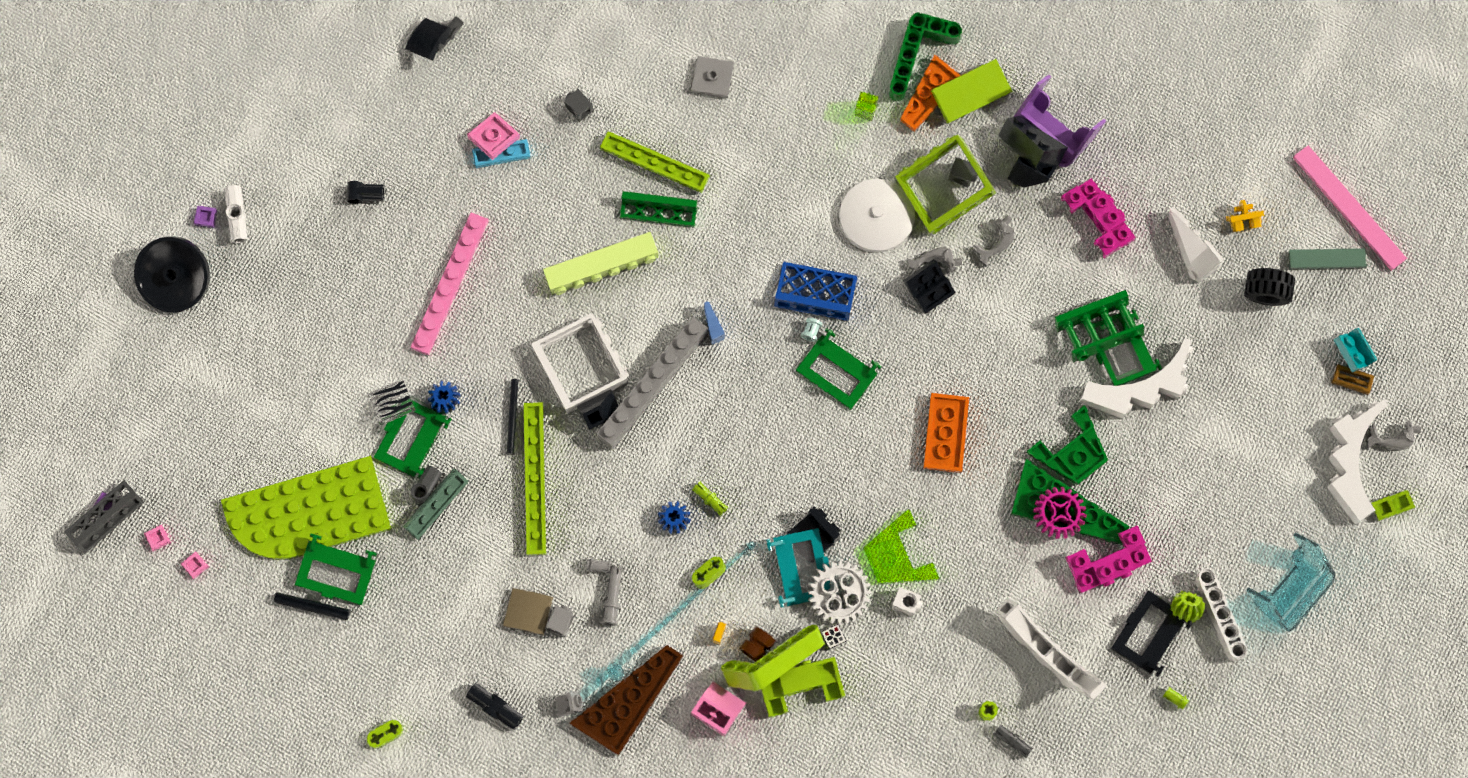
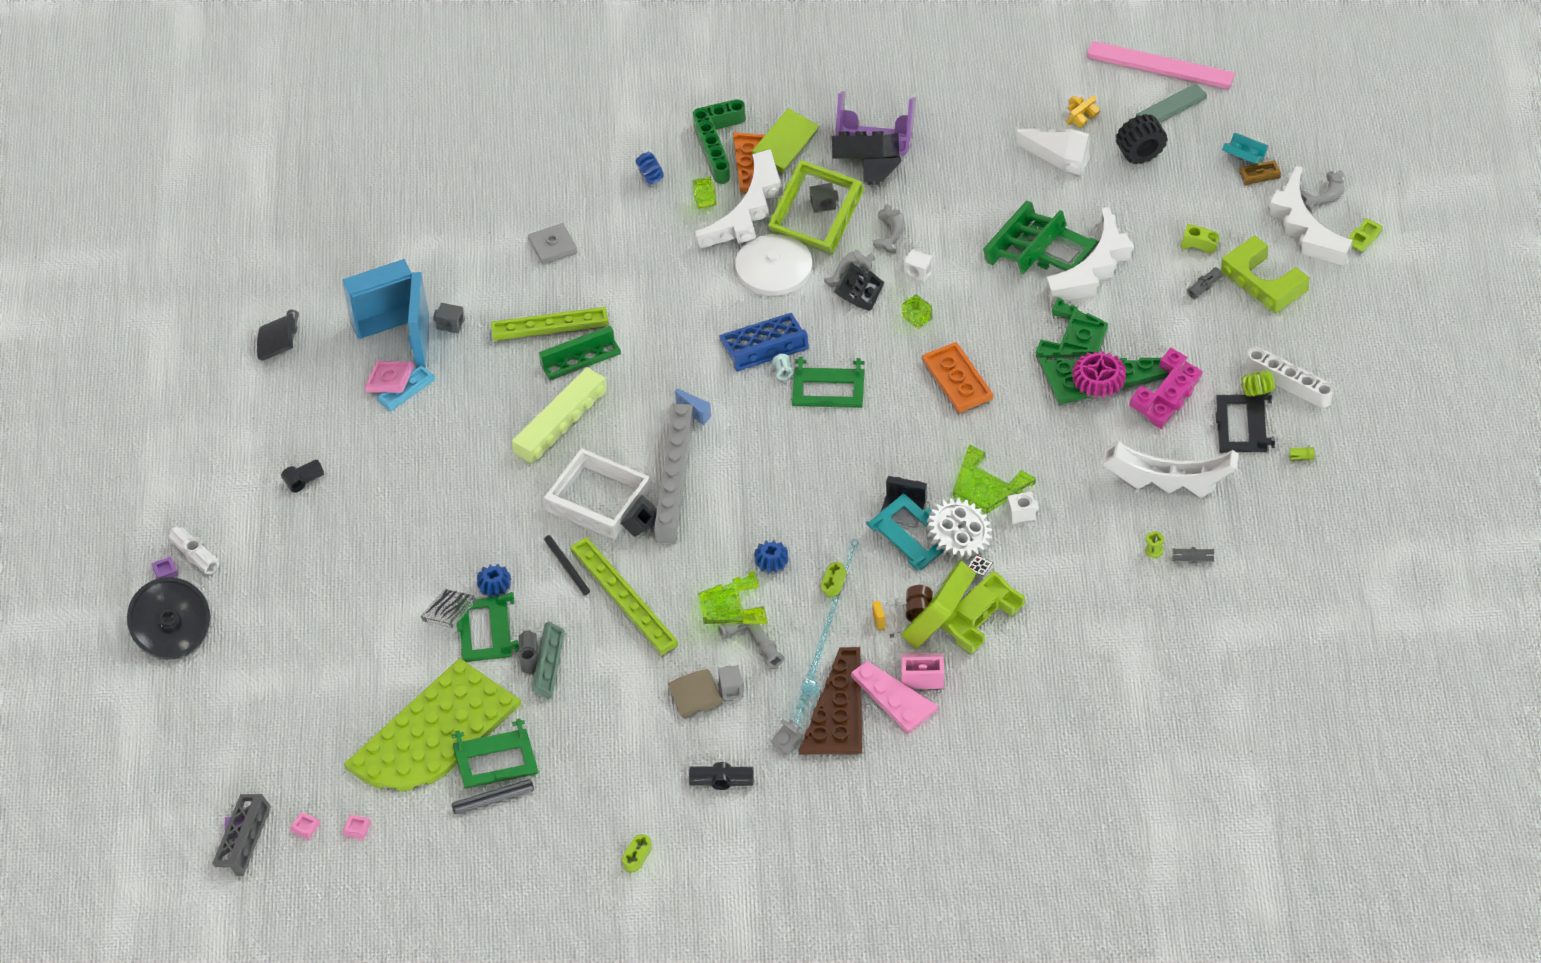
camera: 30 degrees left, 25 degrees down
(449, 284) = (432, 502): bright pink plate -> none
(533, 63) = (387, 300): none -> dark azure container
(603, 541) = (724, 606): none -> clear neon green wing
(678, 726) = (895, 698): none -> bright pink wing
(710, 498) = (791, 528): lime pin -> none
(838, 51) = (649, 168): none -> blue gear
(896, 149) = (752, 207): none -> white arch
(959, 350) = (916, 311): none -> clear neon green brick
(992, 295) = (917, 265): none -> white brick
(1103, 214) = (963, 166): dark pink bracket -> none
(1220, 468) = (1212, 277): none -> dark grey pin
(1248, 420) = (1200, 238): none -> lime leg
(1268, 518) = (1271, 293): none -> lime arch
(1299, 588) = (1339, 323): clear light blue windscreen -> none

